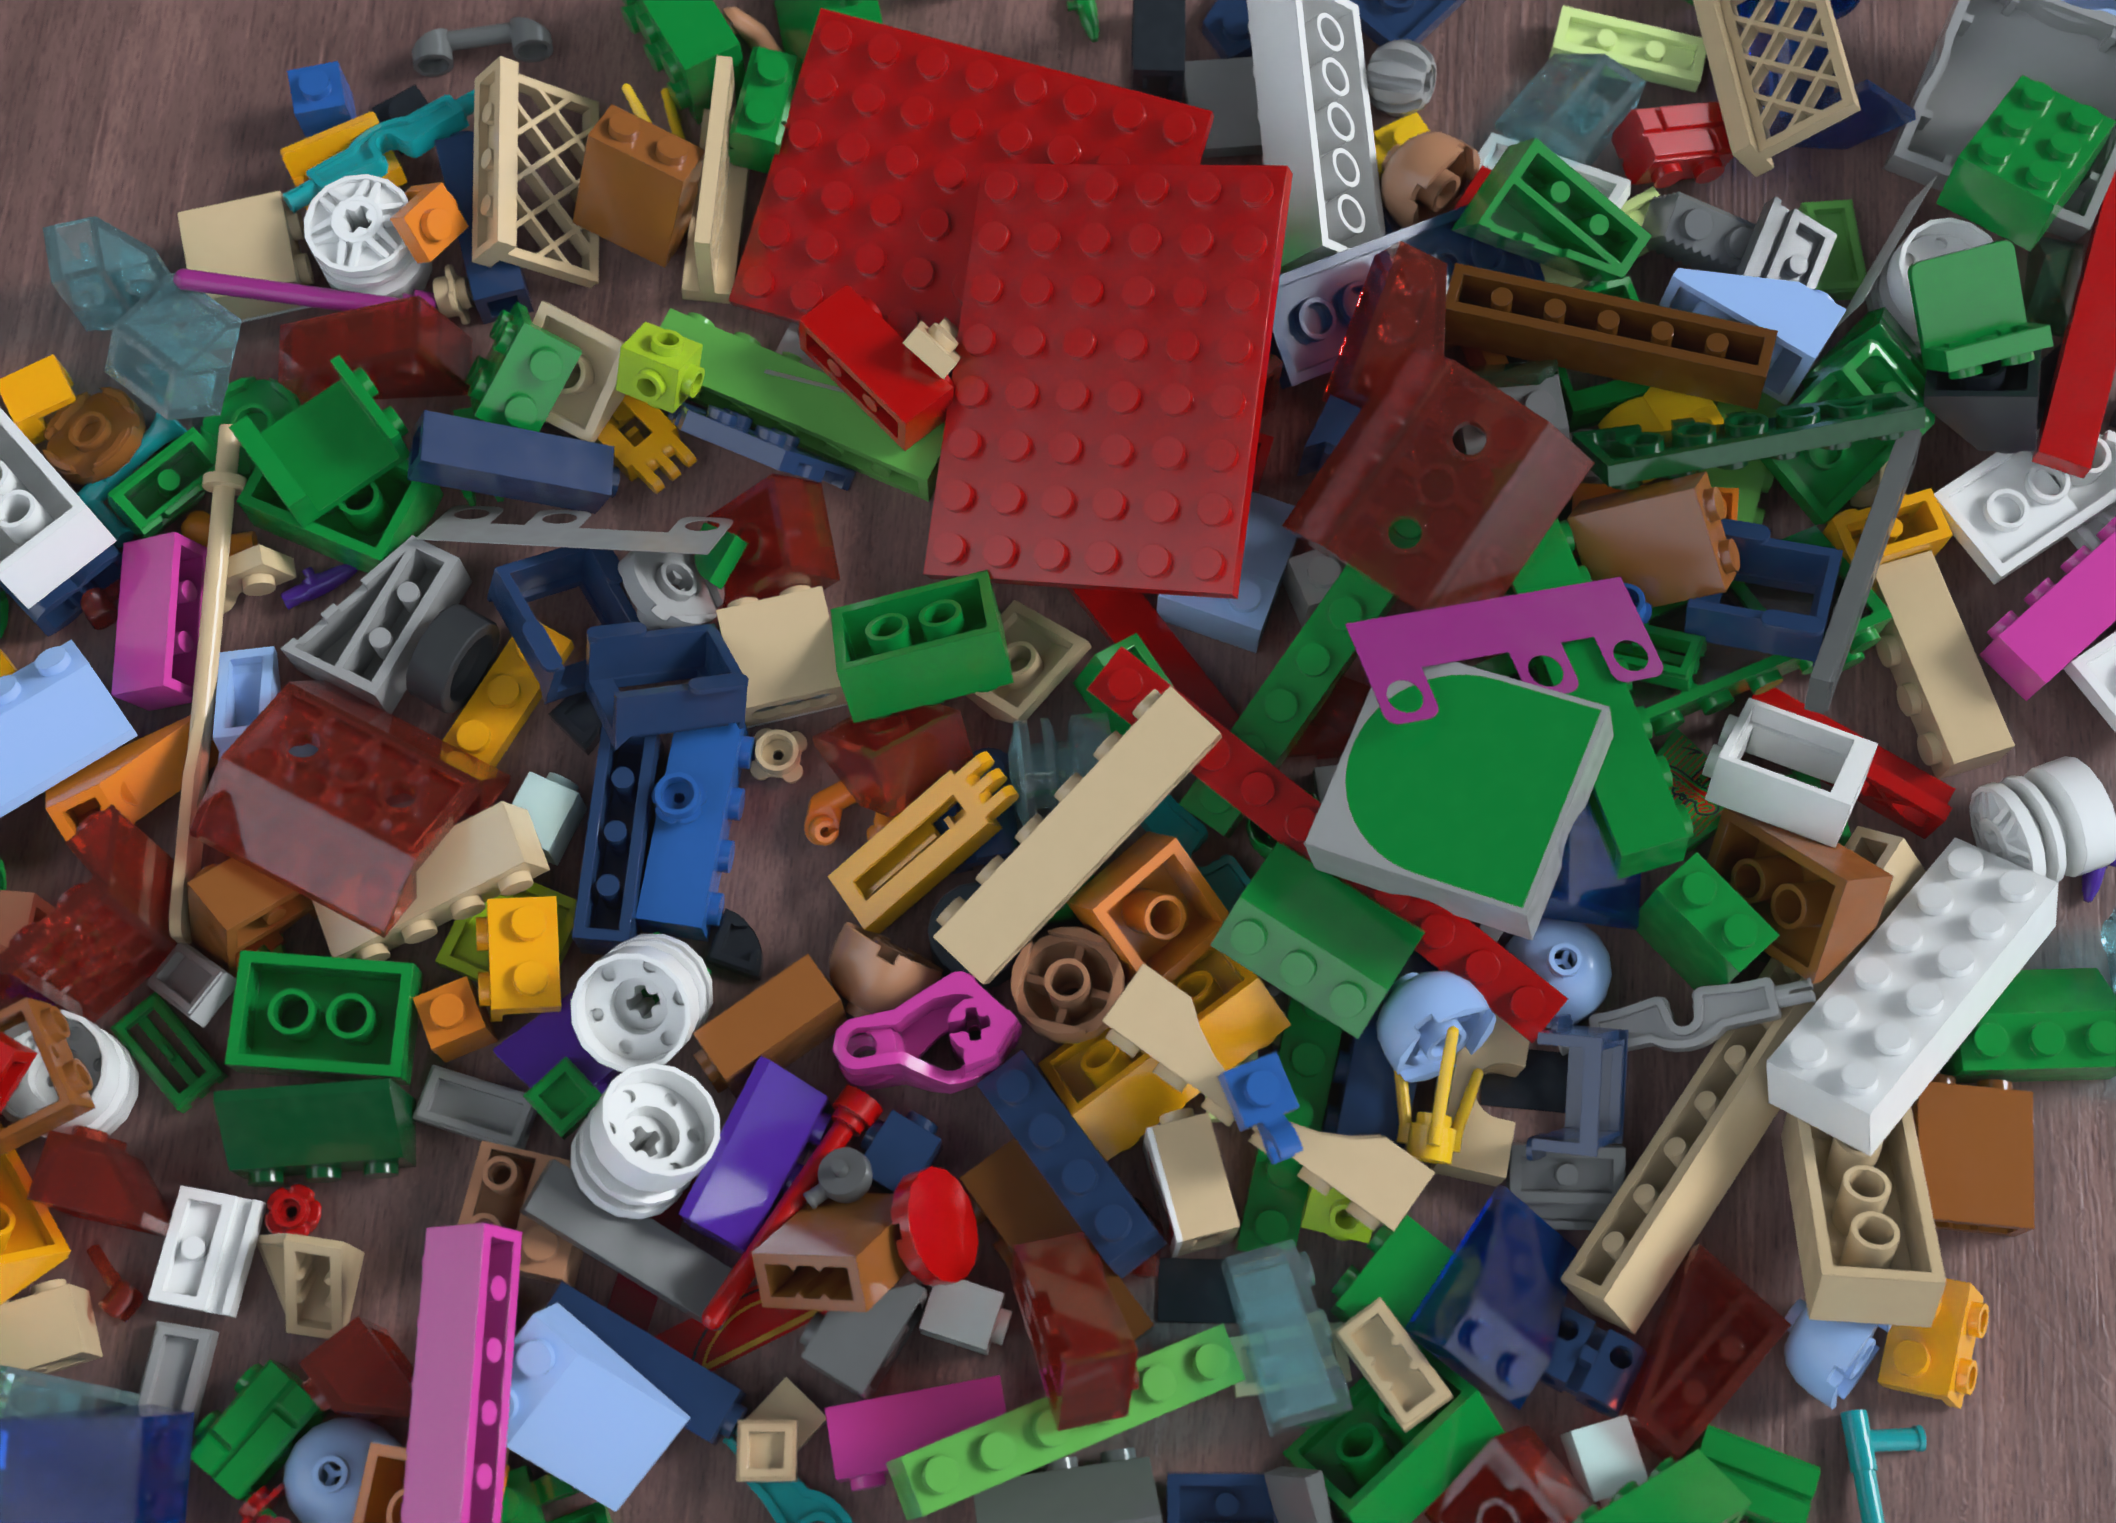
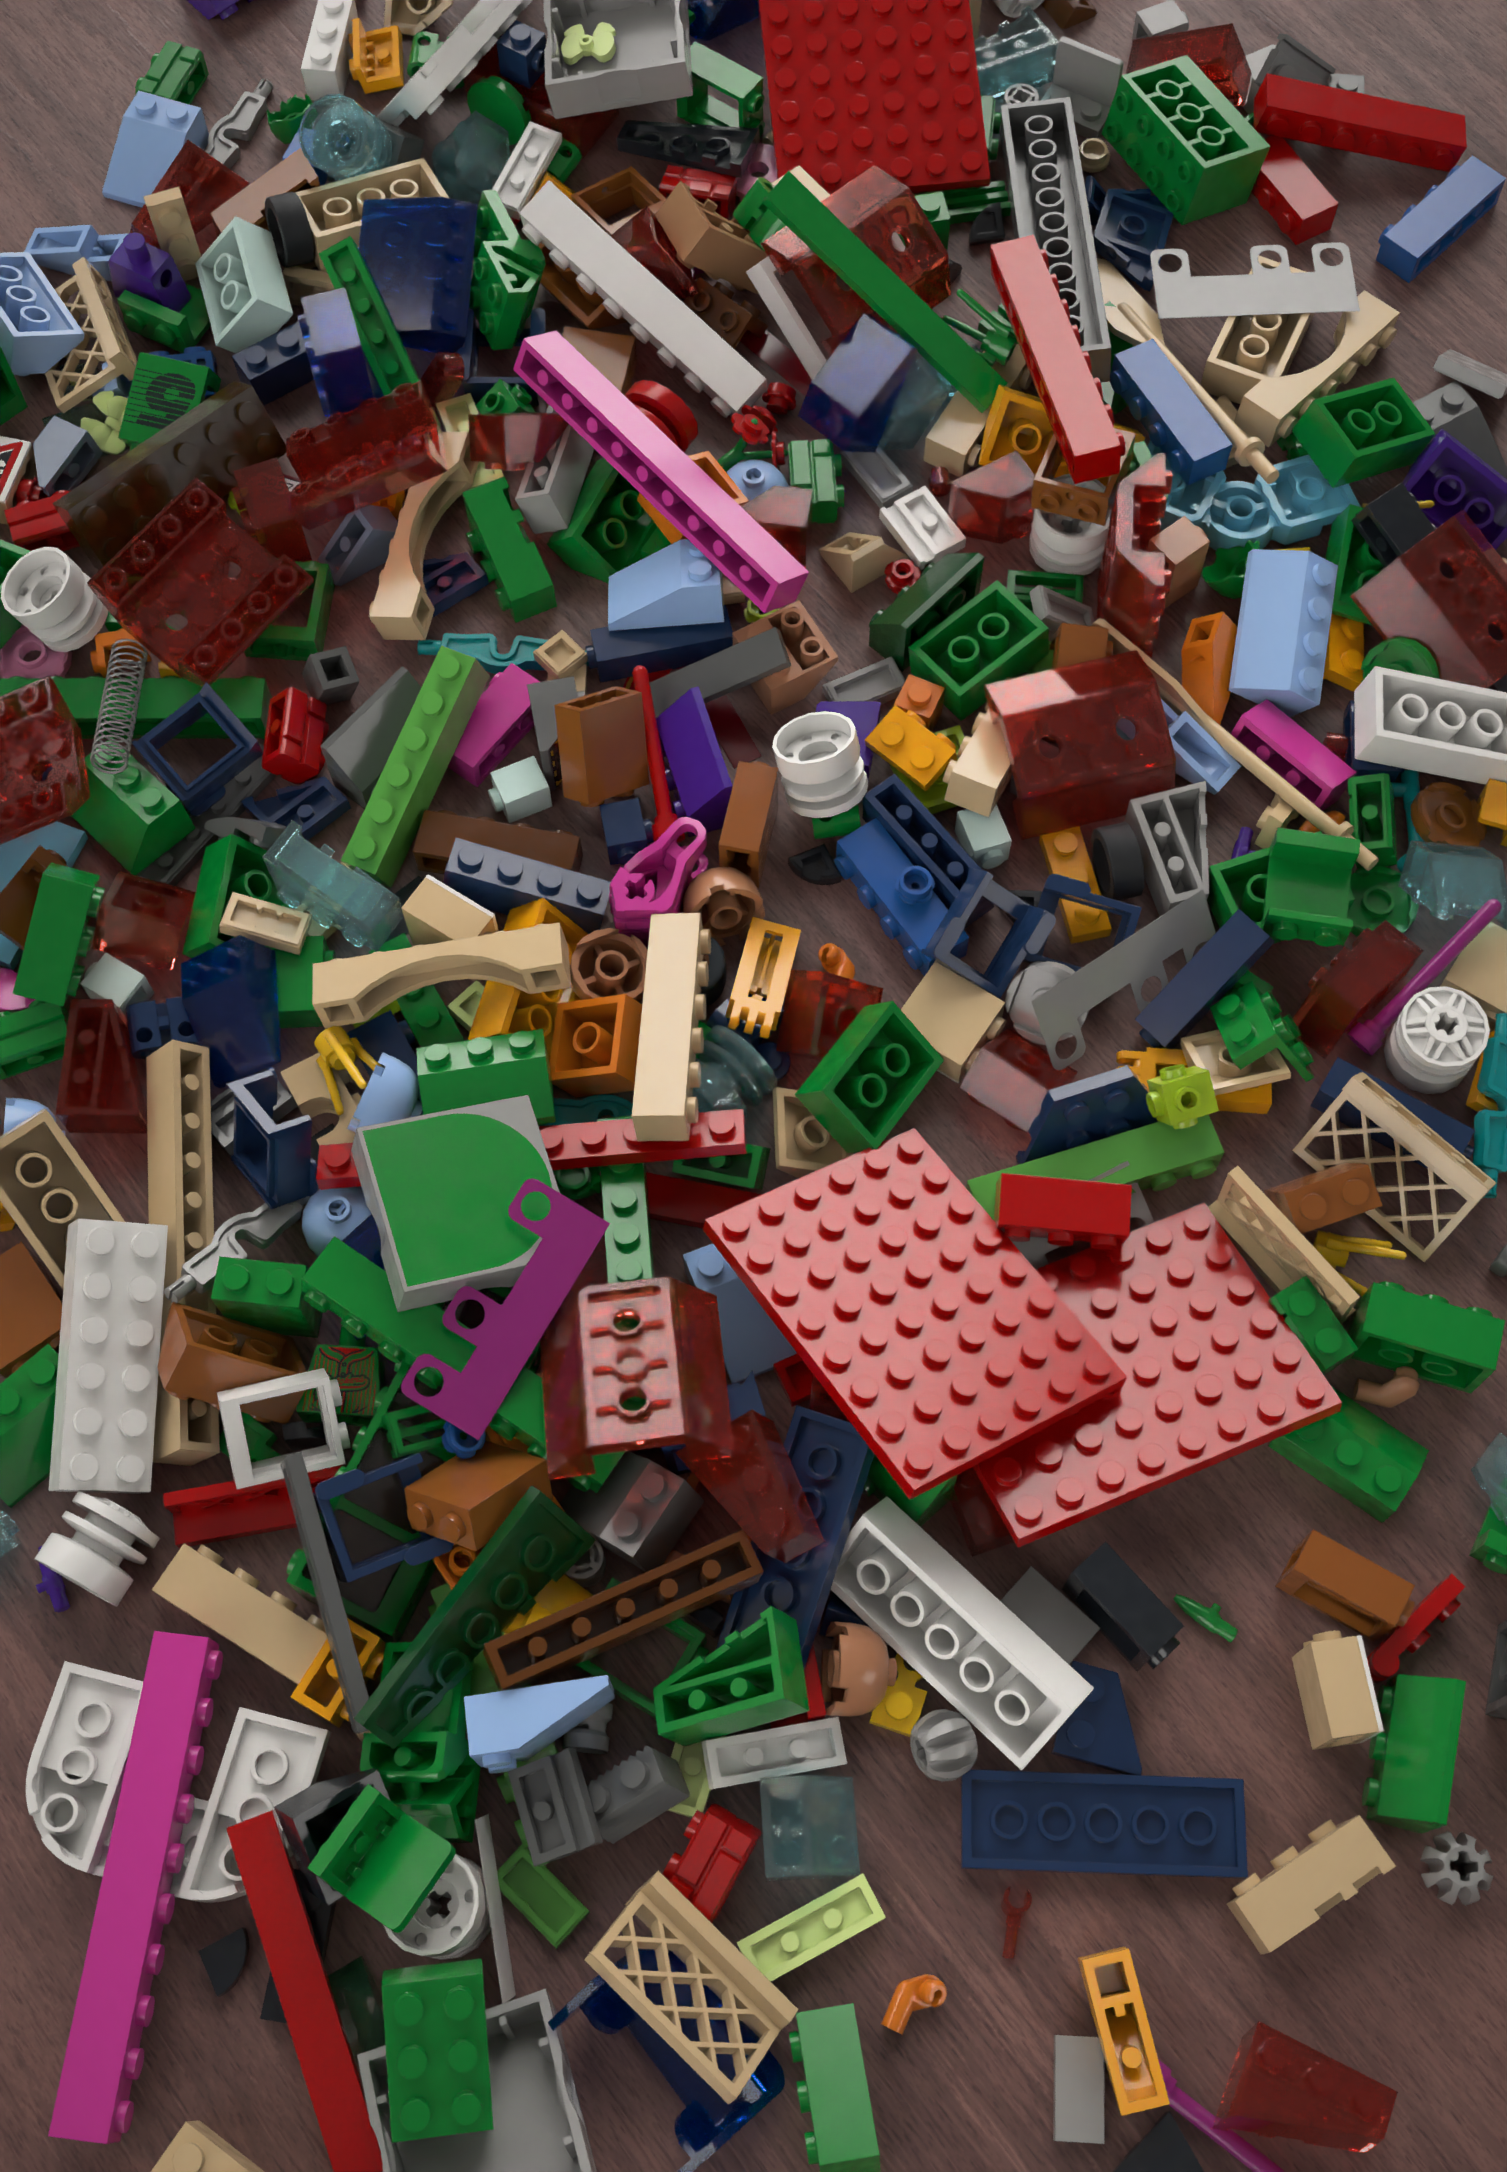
camera: 140 degrees right, 5 degrees down
(428, 221) = (1409, 1064): orange bracket -> none
(453, 295) = (1361, 1057): tan plate -> none
(563, 1098) = (817, 699): green tile -> none
(645, 1141) = (725, 702): white wheel -> none
(722, 559) = (1035, 1042): green tile -> none
(772, 741) = (896, 965): tan plate -> none
(842, 1176) = (639, 783): dark grey piece -> none
(935, 345) = (1036, 1237): tan plate -> none
(935, 1226) = (565, 791): red tile -> none
(1075, 1331) = (444, 787): clear red wedge -> none
(1261, 1098) = (437, 955): blue plate -> none
(1516, 373) = (670, 1526): piece -> none

